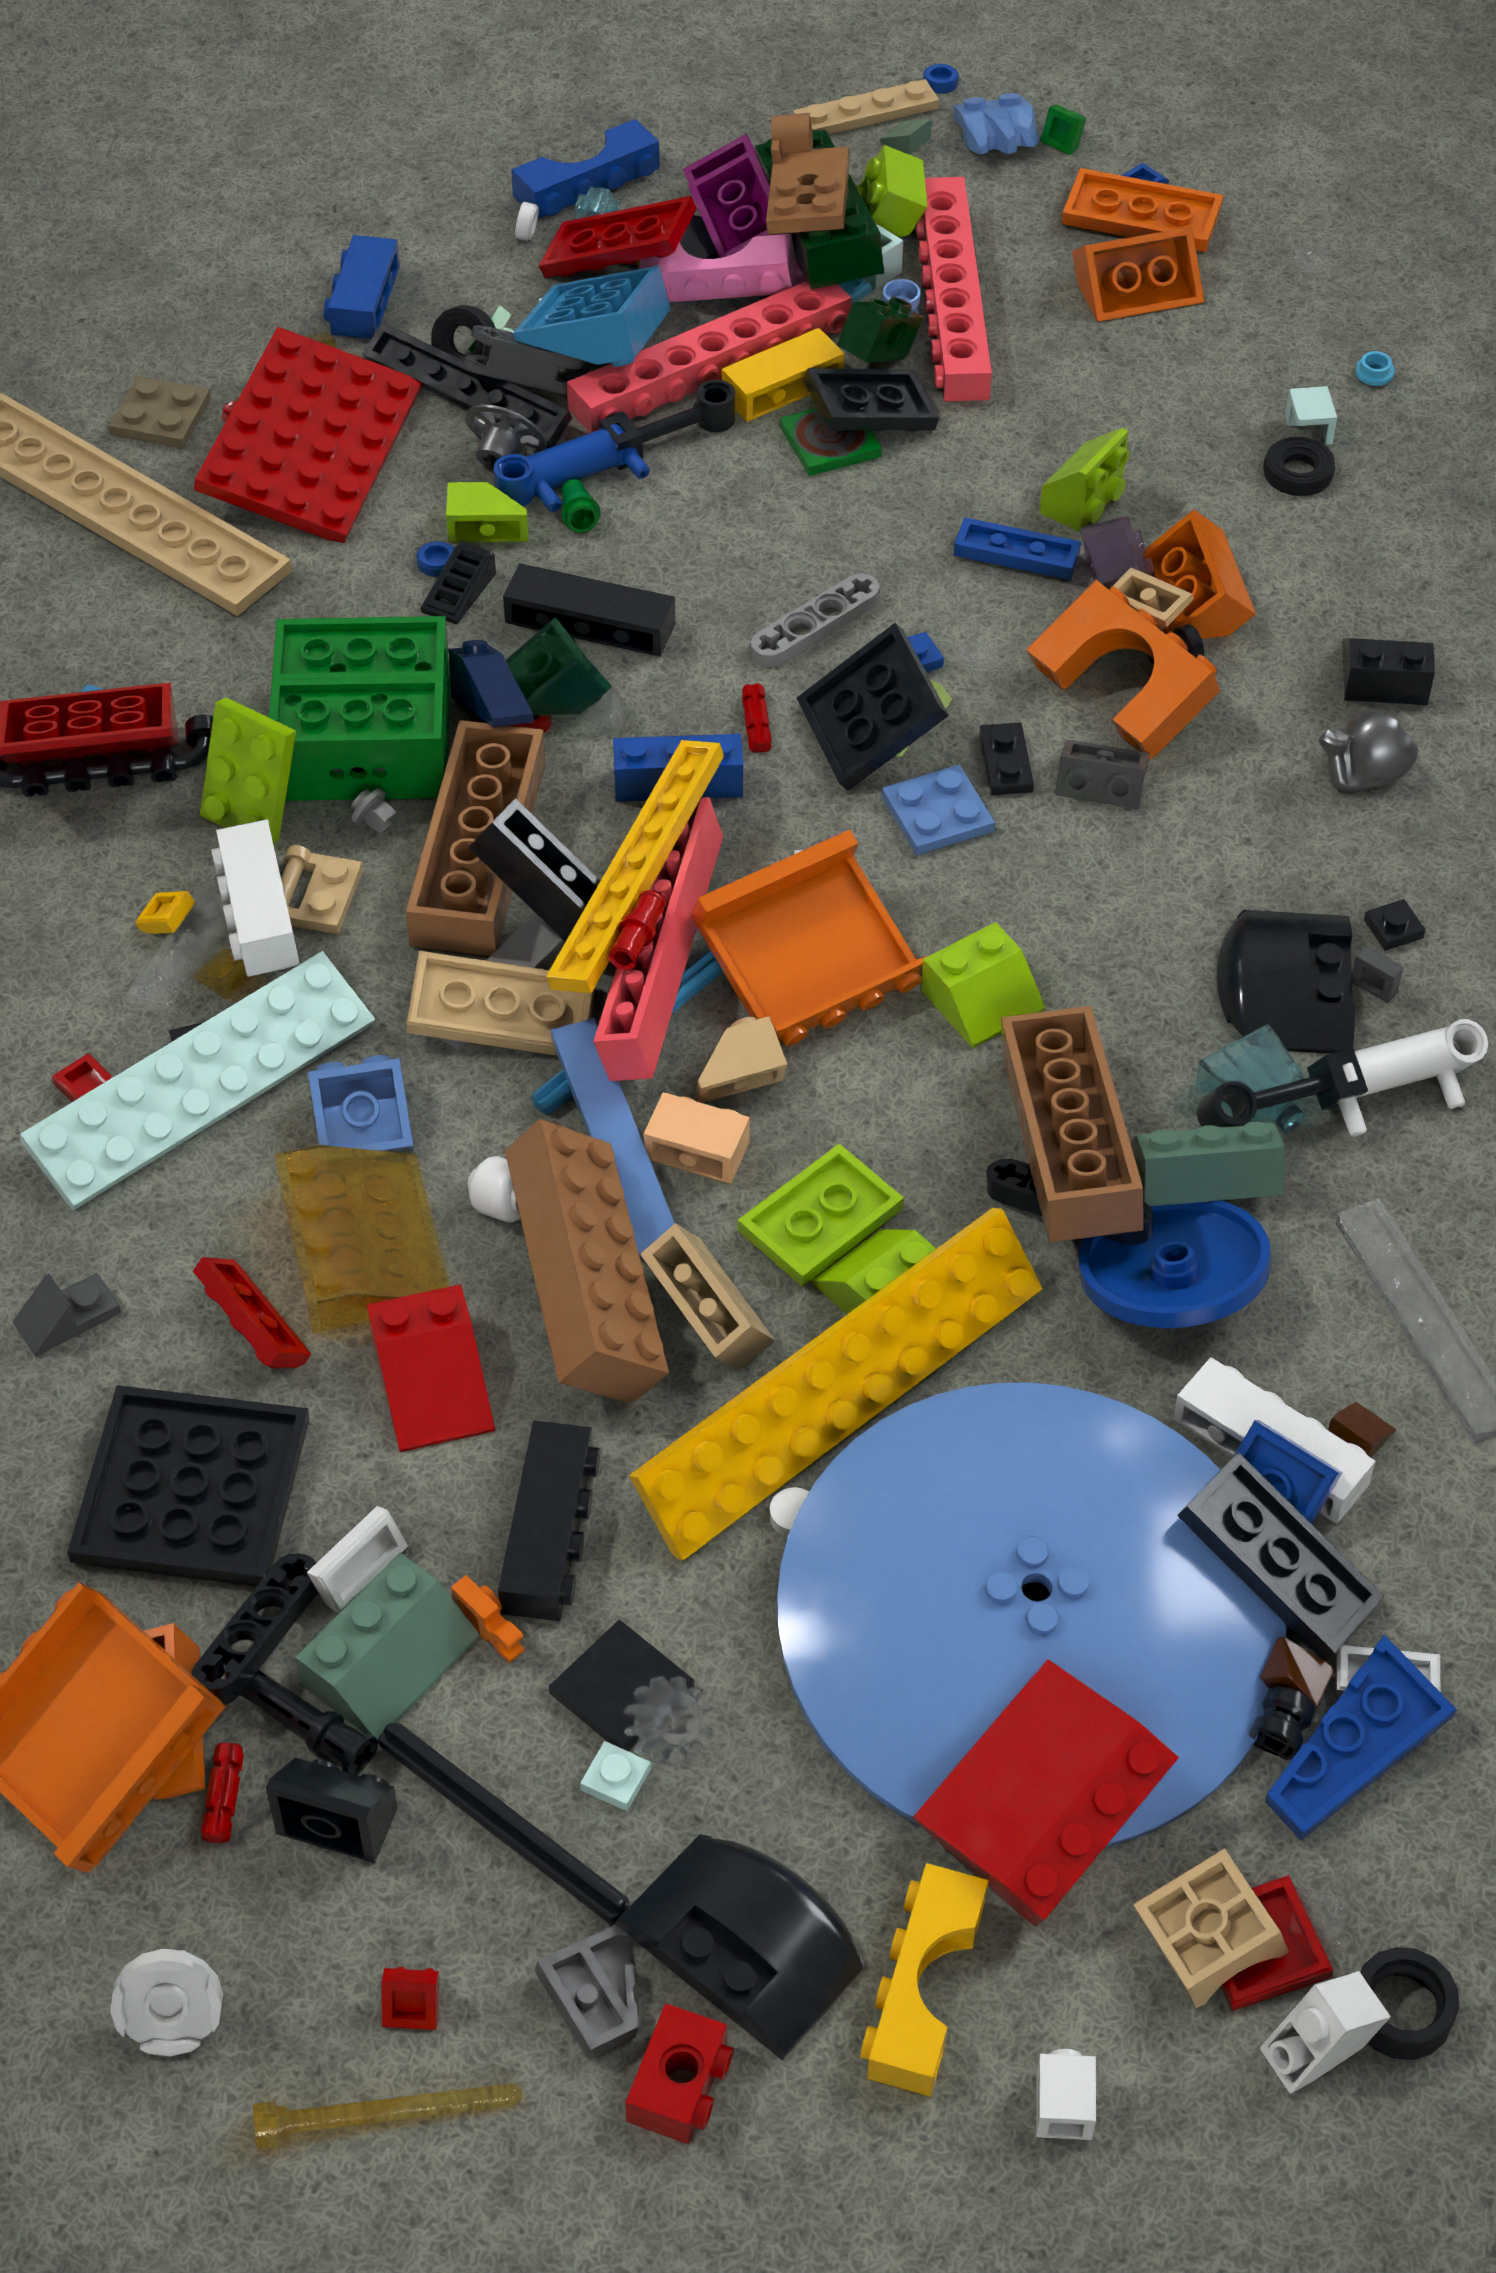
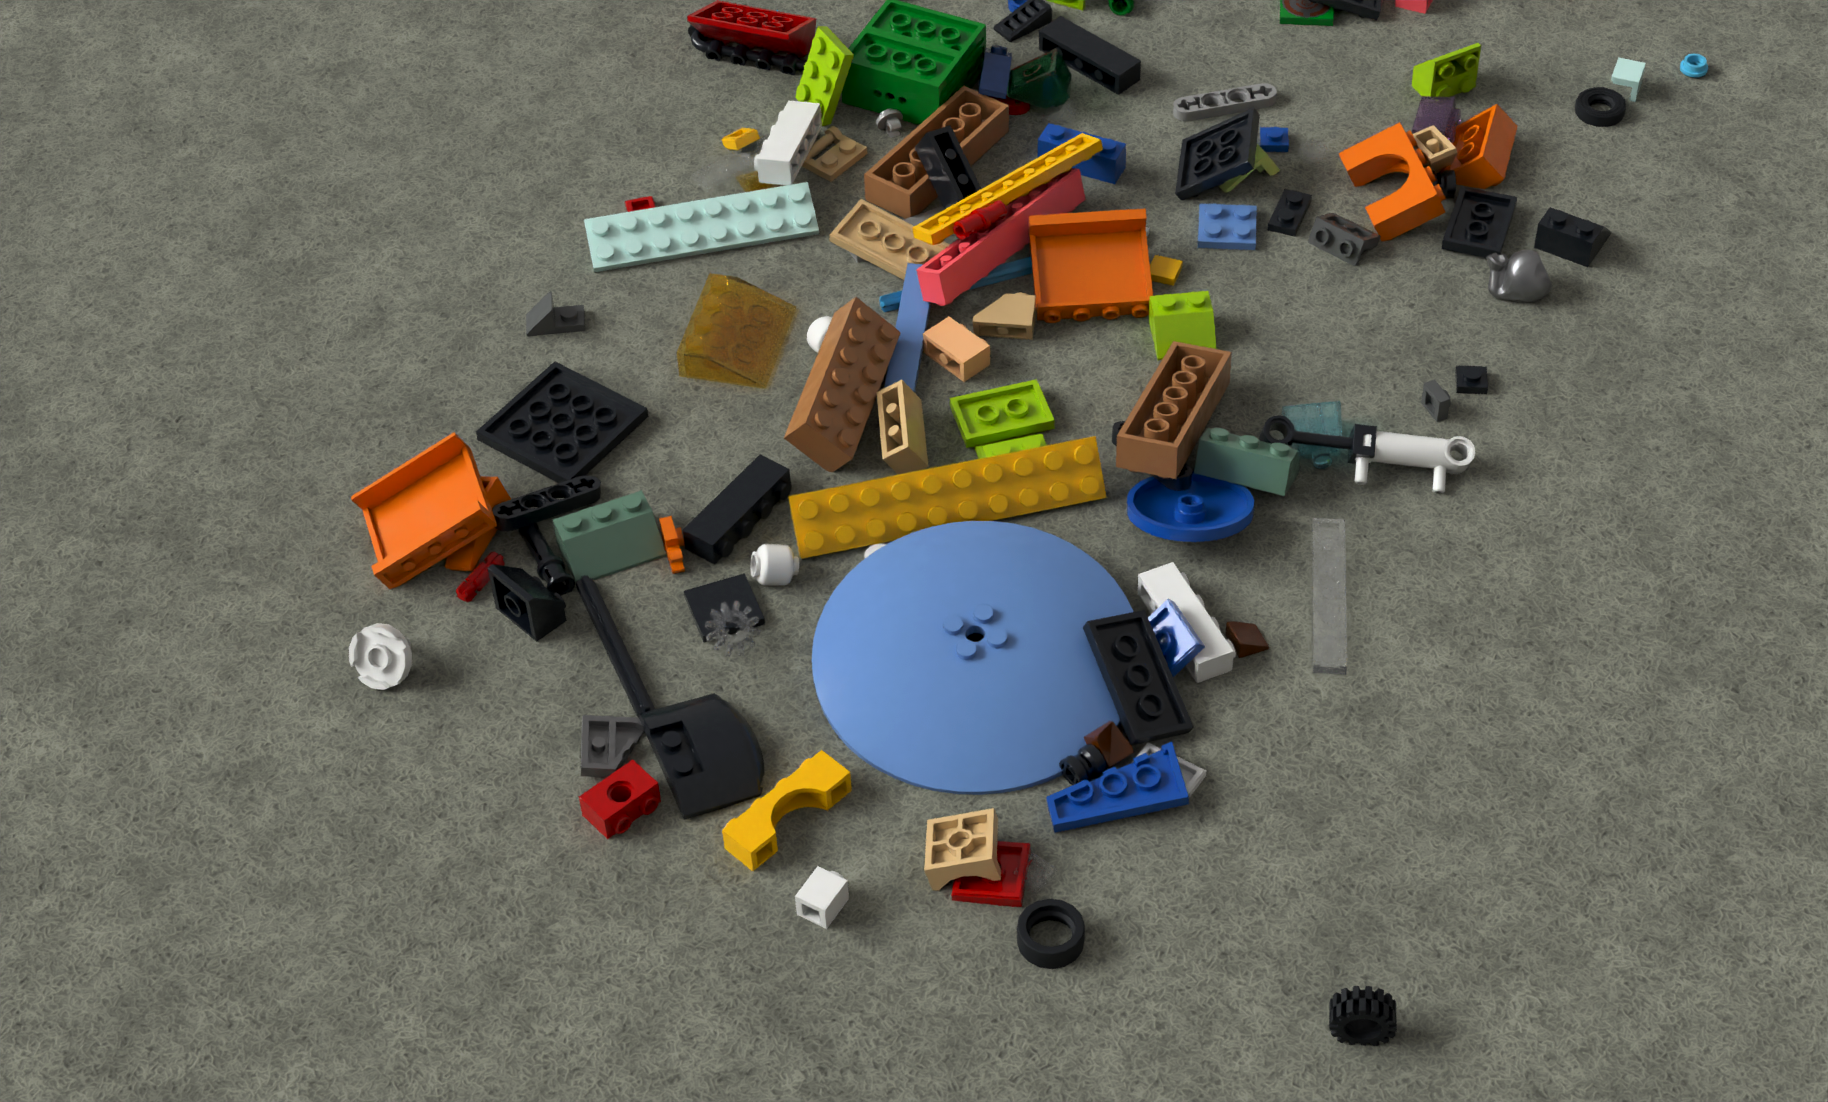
camera: 30 degrees right, 5 degrees down
(251, 1313) = (650, 352): red plate -> none
(277, 2123) = (399, 738): clear yellow piece -> none
(357, 1559) = (624, 485): white tile -> none
(361, 1105) = (779, 268): medium blue plate -> none
(410, 1998) = (507, 708): red tile -> none
(430, 1367) = (727, 411): red slope -> none
(615, 1776) = (690, 649): light aqua plate -> none
(657, 1588) = (774, 565): none -> white head
(756, 718) = (1151, 144): red axle -> none
(901, 904) = (1165, 269): none -> yellow tile
(1017, 548) = (1378, 99): blue plate -> none
(1045, 1790) = (913, 741): red slope -> none
(1261, 689) = (1479, 222): none -> black plate
(1291, 976) = (1381, 386): black slope -> none
(1324, 2030) = (990, 922): white slope -> none

